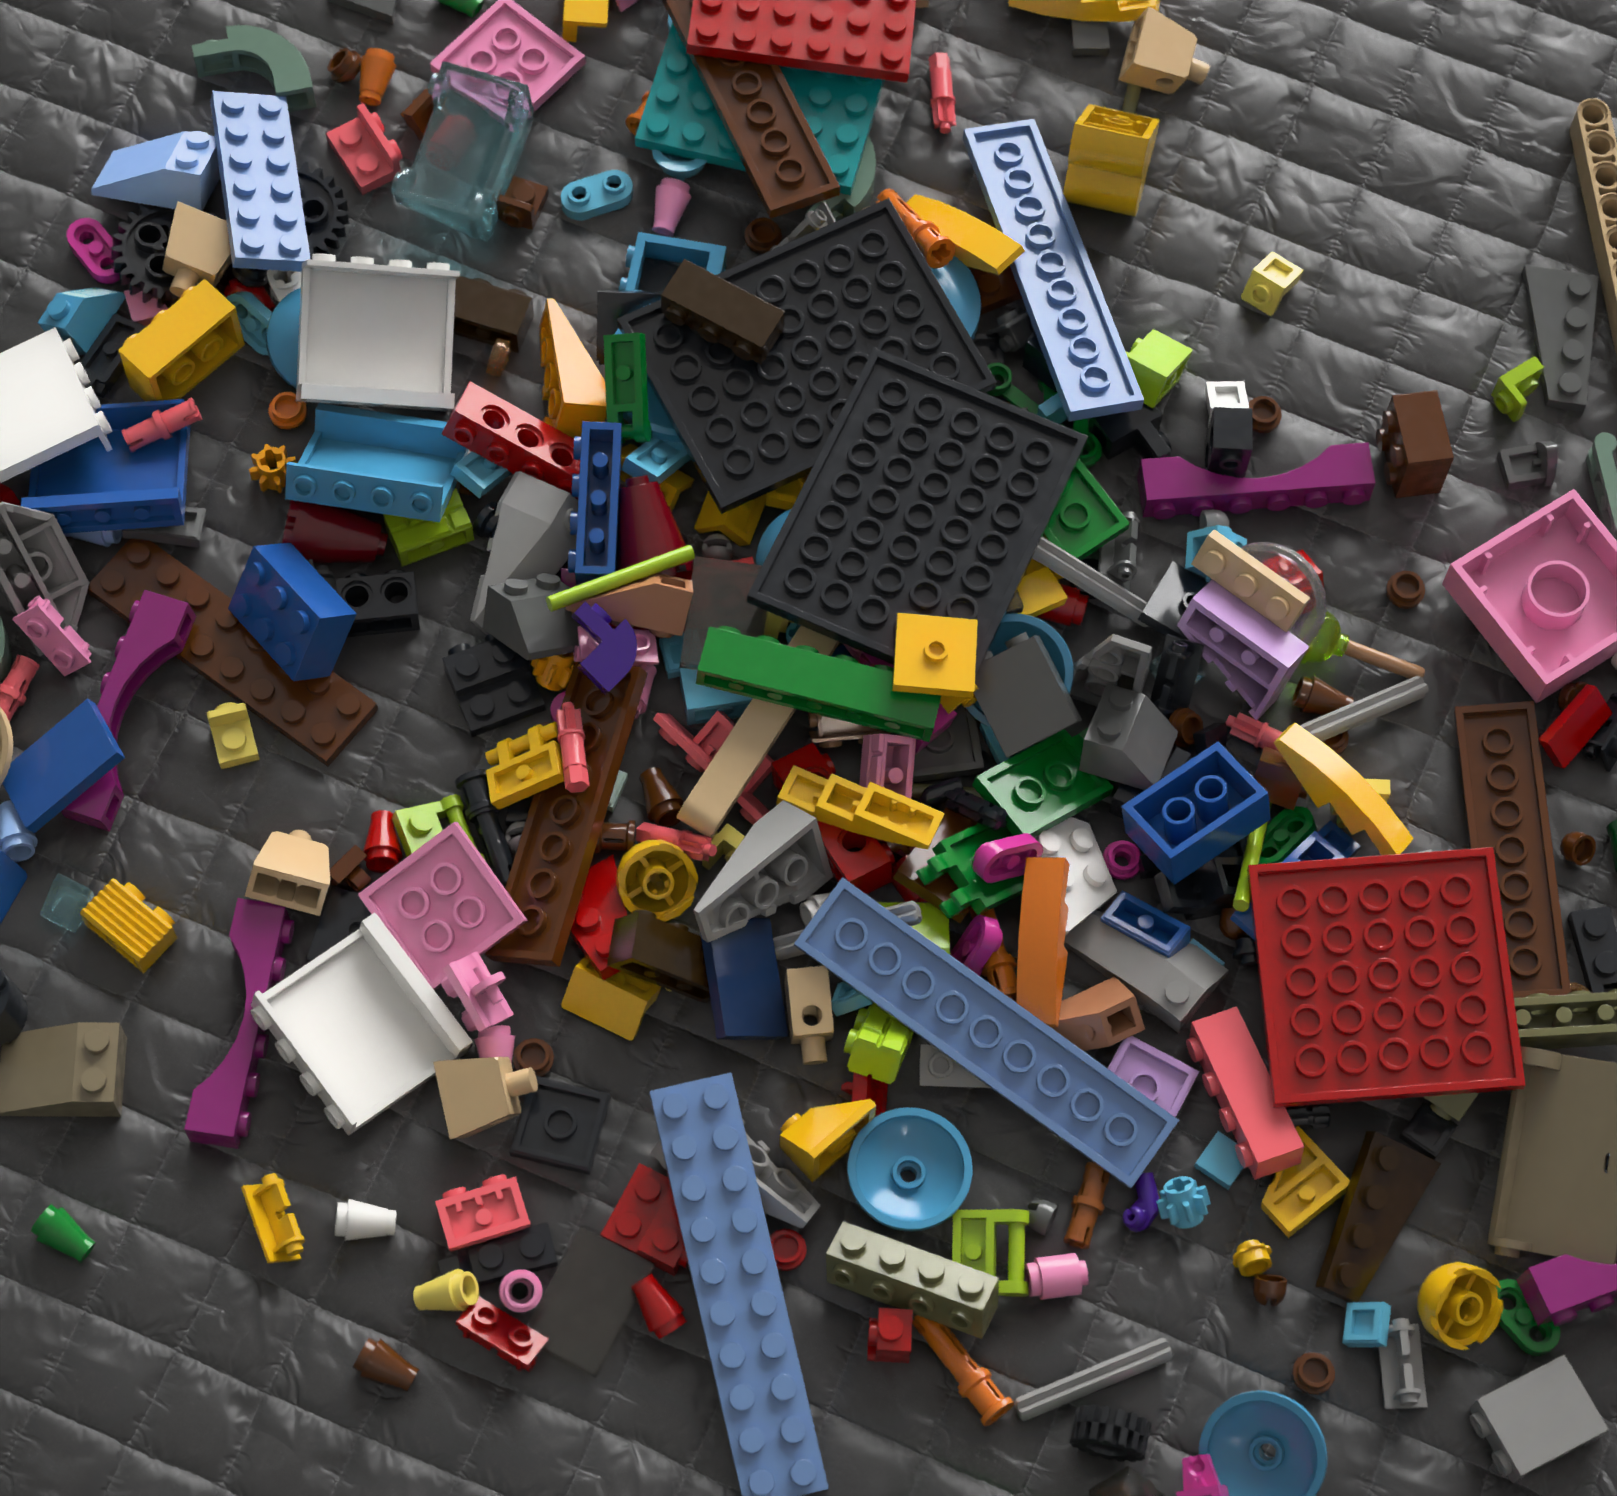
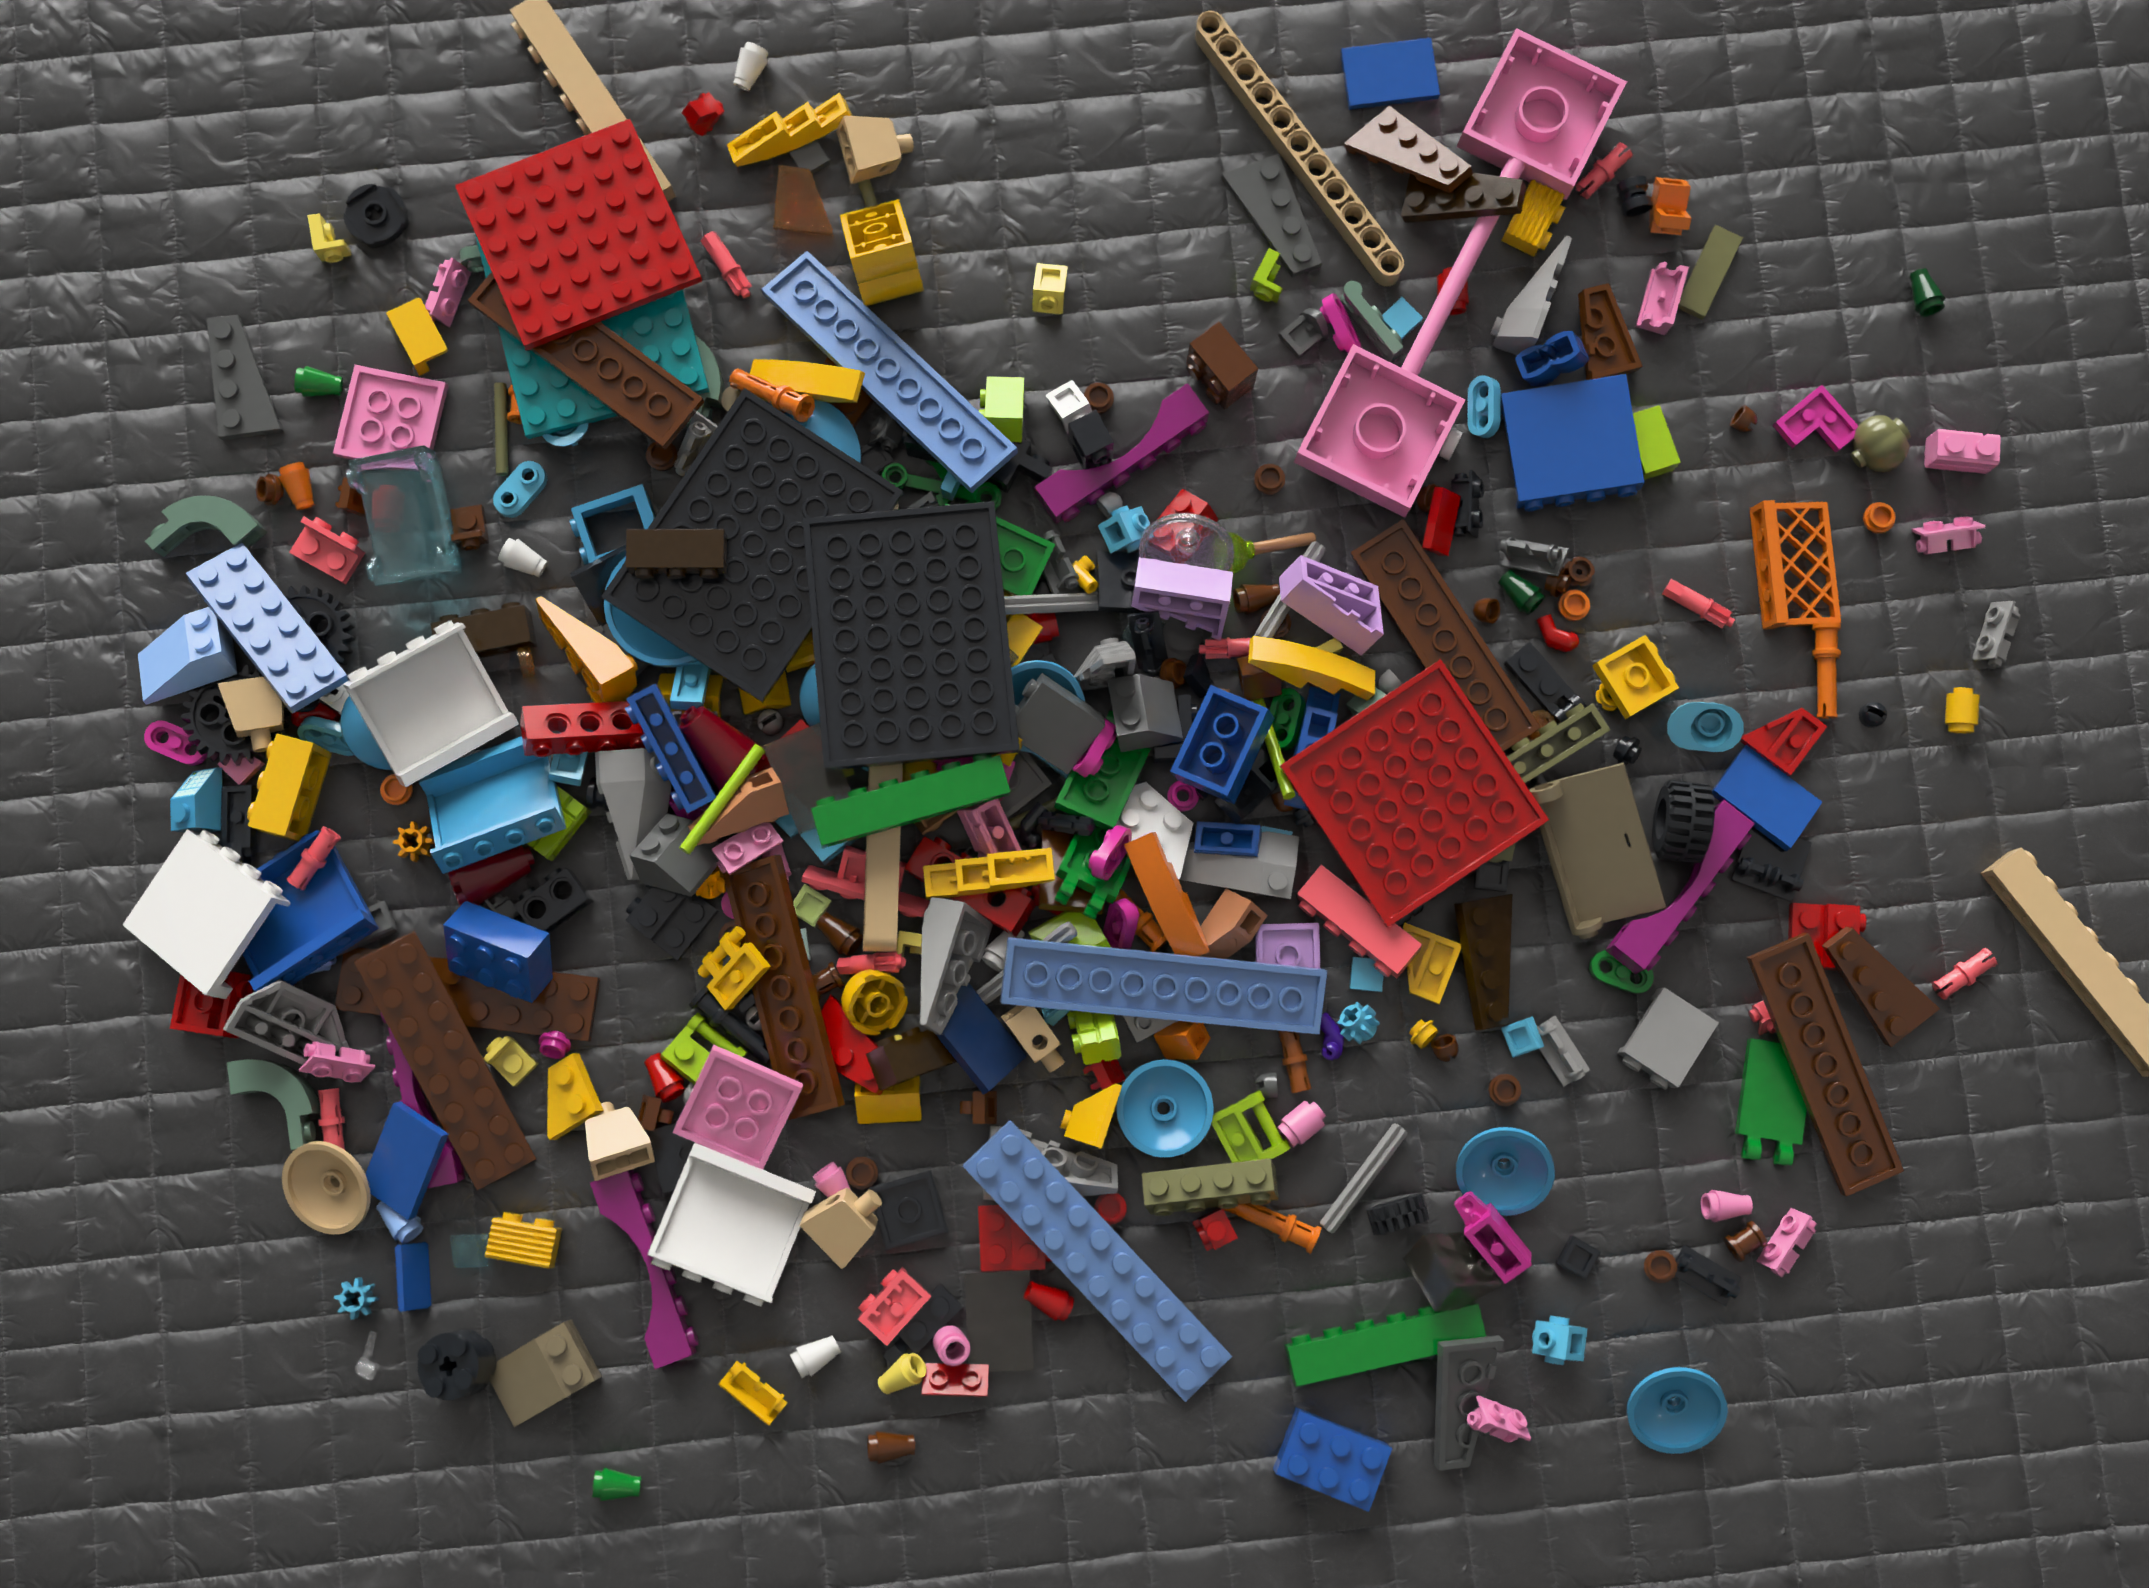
camera: 30 degrees left, 15 degrees up
(168, 689) = (445, 1059): none -> reddish brown plate
(271, 805) = (569, 1096): none -> yellow wing
(288, 744) = (554, 1044): none -> dark pink plate
(477, 991) = (799, 1156): bright pink hips -> none
(556, 256) = (522, 558): none -> white cone
(572, 748) = (760, 941): coral piece -> none
(613, 130) = (501, 429): none -> olive bar
(615, 651) = (751, 858): dark purple brick -> none
(627, 384) = (639, 645): green plate -> none
(646, 752) = (810, 905): none -> yellowish green tile
(670, 203) = (579, 469): bright pink cone -> none
(706, 1058) = (982, 1107): none -> reddish brown tile
(935, 655) = (982, 739): yellow plate -> none
(974, 1110) = (1183, 1040): none -> orange panel
(1040, 752) = (1091, 759): none -> dark pink plate
(1052, 72) = (799, 204): none -> clear orange wing
(1143, 578) = (1086, 580): none -> yellow arm
(1250, 580) = (1167, 548): tan plate -> none
(1405, 737) = (1334, 602): none -> lavender wedge
(1459, 1304) = (1577, 991): yellow cylinder -> none
(1573, 463) = (1335, 313): none -> dark pink plate

